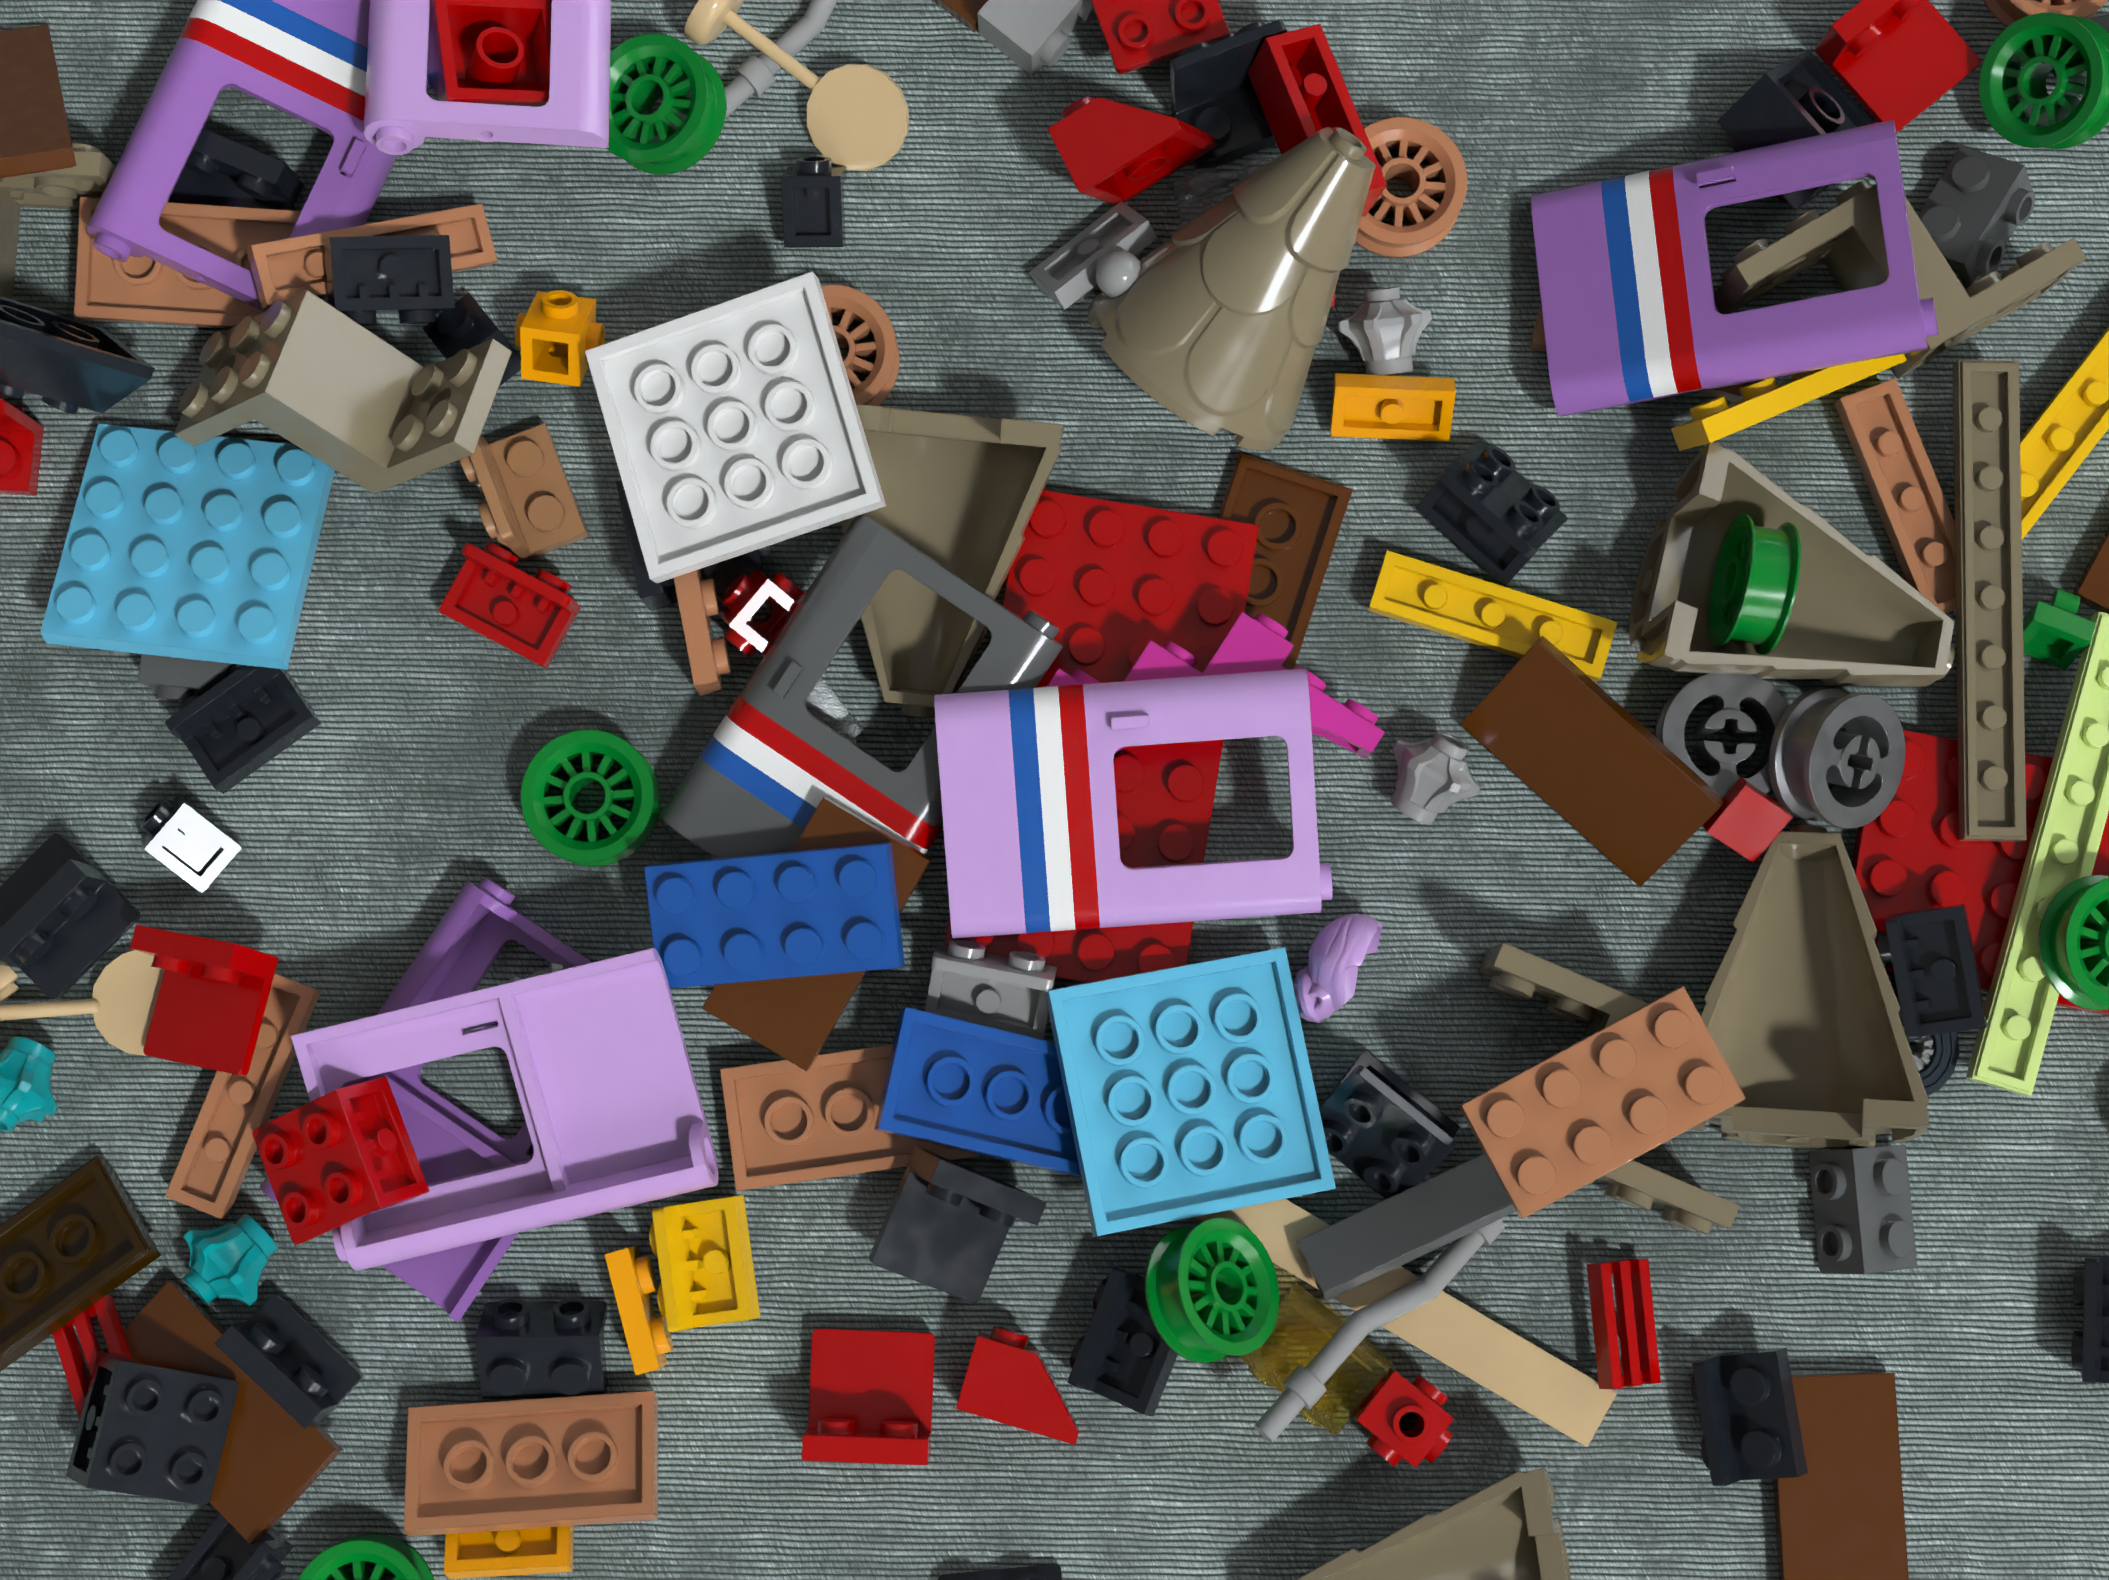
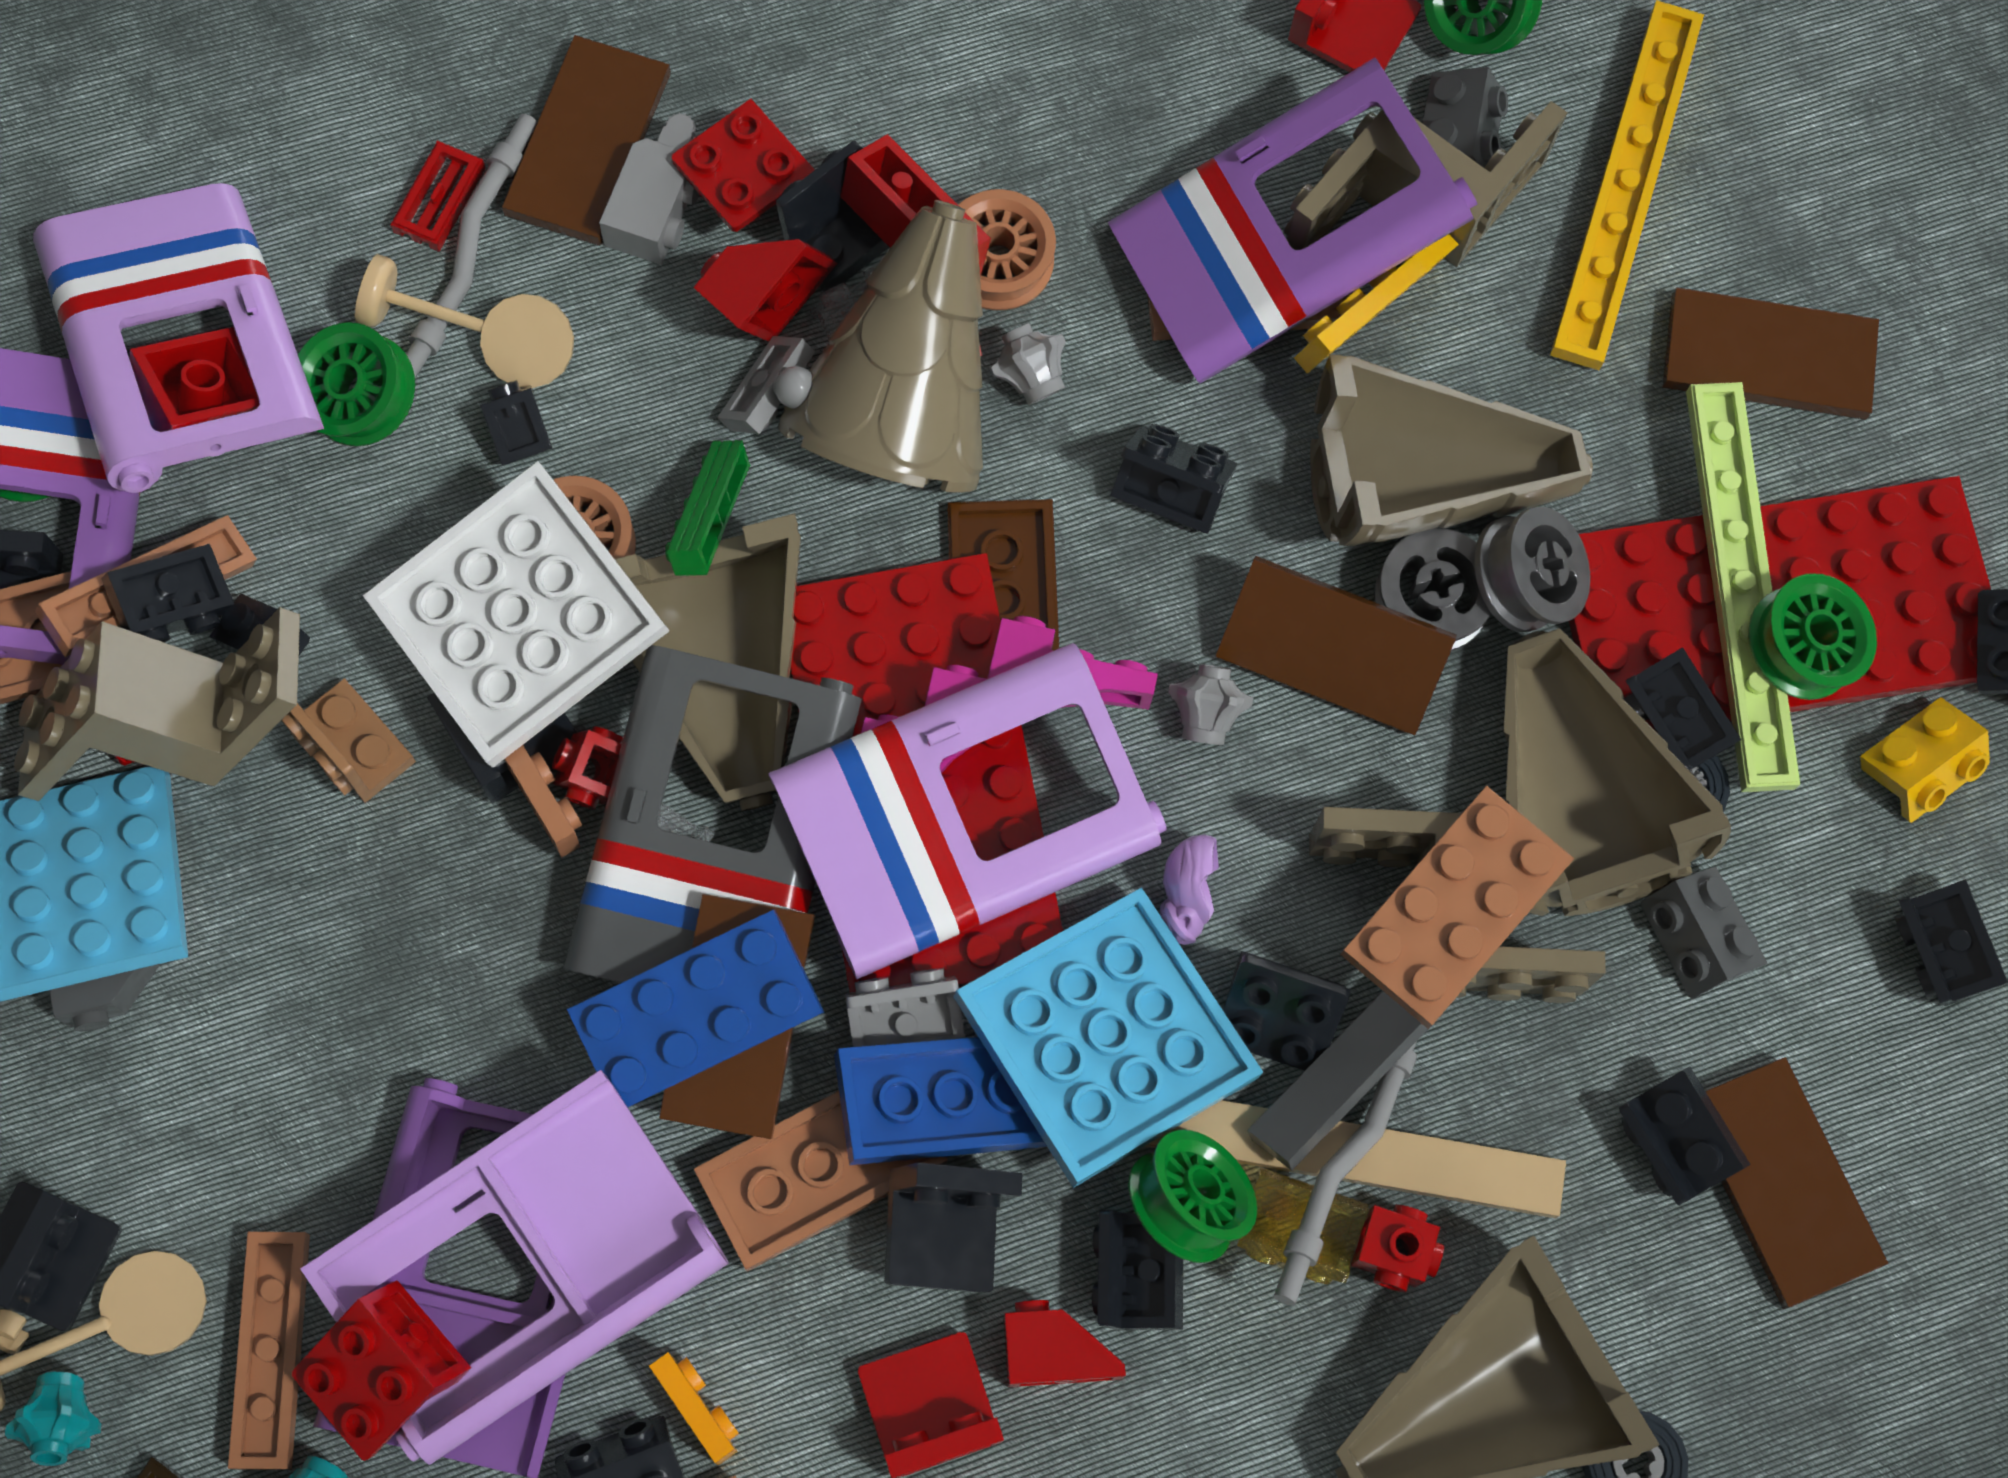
camera: 30 degrees left, 10 degrees down
(187, 842) = (144, 1145): bracket -> none
(207, 999) = (208, 1272): red bracket -> none
(242, 723) = (160, 1022): black bracket -> none
(510, 605) = (367, 837): red bracket -> none
(542, 774) = (474, 935): green wheel -> none
(556, 337) = (332, 600): light orange brick -> none
(704, 1263) = (740, 1344): yellow bracket -> none
(979, 376) = (708, 508): none -> green piece
(1392, 407) = (1060, 422): light orange plate -> none
(1488, 613) = (1199, 558): yellow plate -> none
(1631, 1322) = (1546, 1092): red tile -> none
(1747, 820) = (1481, 645): red tile -> none
(1753, 584) = (1410, 452): green wheel -> none
(1789, 105) = (1280, 83): black slope -> none
(1903, 489) = (1502, 350): nougat plate -> none
(1989, 601) = (1602, 410): dark tan tile -> none
(2055, 631) = (1661, 416): green tile -> none

